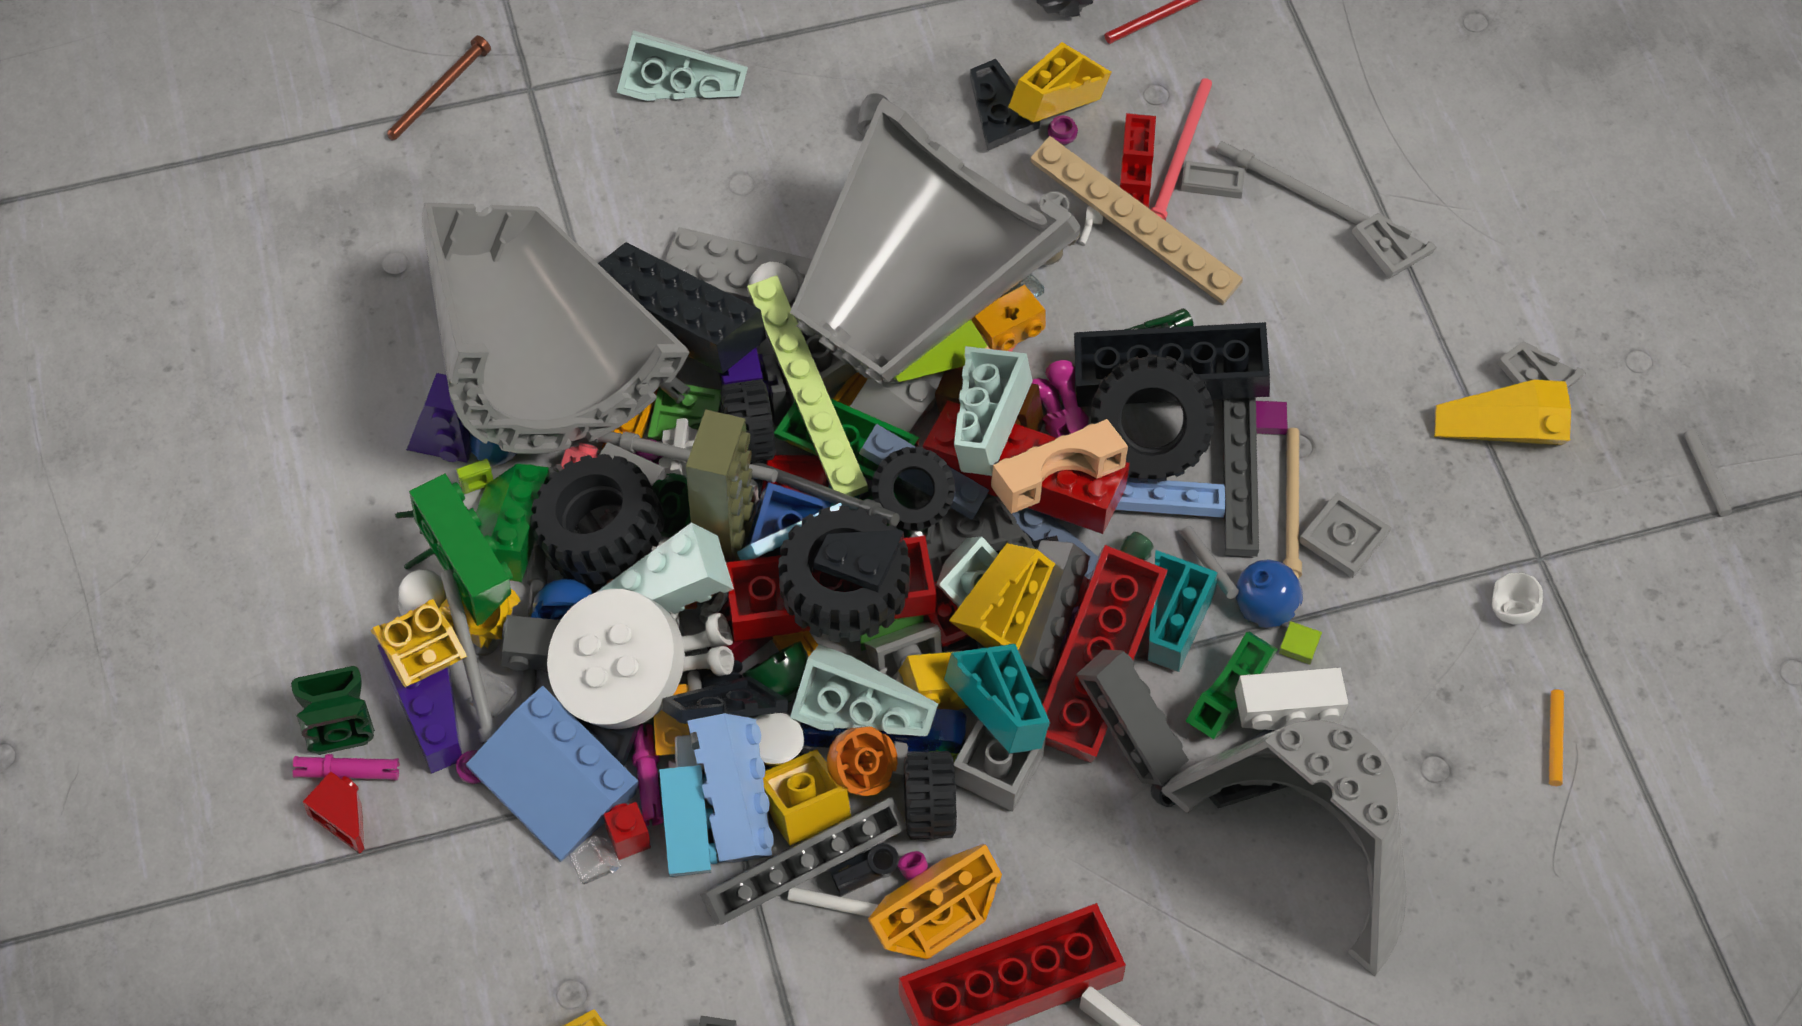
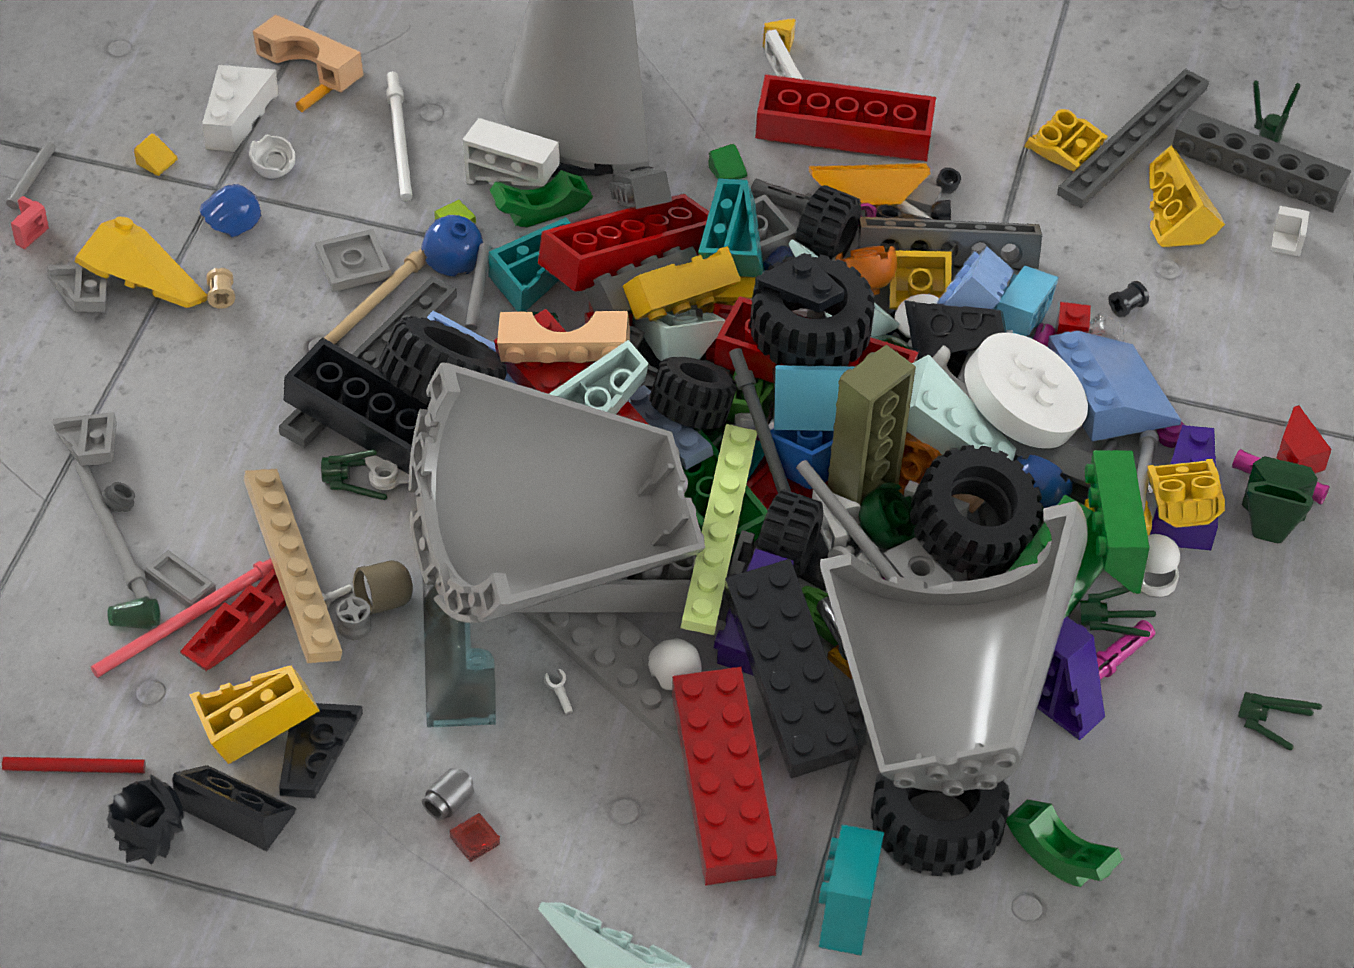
camera: 150 degrees left, 10 degrees down
(275, 507) = (1257, 707): none -> dark green plant
(382, 303) = (1059, 849): none -> green arch
(432, 468) = (1136, 642): none -> dark pink pin
(528, 179) = (849, 888): none -> teal wedge
(589, 907) = (1126, 300): none -> black bush
(676, 211) = (724, 776): none -> red brick
(832, 100) = (474, 837): none -> clear red plate
(840, 921) = (941, 210): none -> black hinge
(852, 964) = (944, 178): none -> black hinge
(868, 942) = (924, 196): none -> light grey tile
(1003, 846) = (780, 195): none -> dark grey pin
(1018, 32) = (232, 805): none -> black slope
(1094, 859) = (727, 163): none -> green slope
(1210, 677) = (573, 217): none -> light grey bar
(1213, 130) = (137, 613): none -> clear green cone
(1319, 210) = (119, 497): none -> dark grey plate
(1427, 440) = (220, 285): none -> tan bush
(1480, 756) = (395, 98): none -> white bar
(1497, 523) = (231, 210): none -> blue hair
(1560, 740) = (285, 40): none -> light nougat arch
(1609, 641) = (235, 103): none -> white wedge
(1624, 552) = (154, 155): none -> yellow slope
(1648, 415) = (30, 223): none -> coral bracket

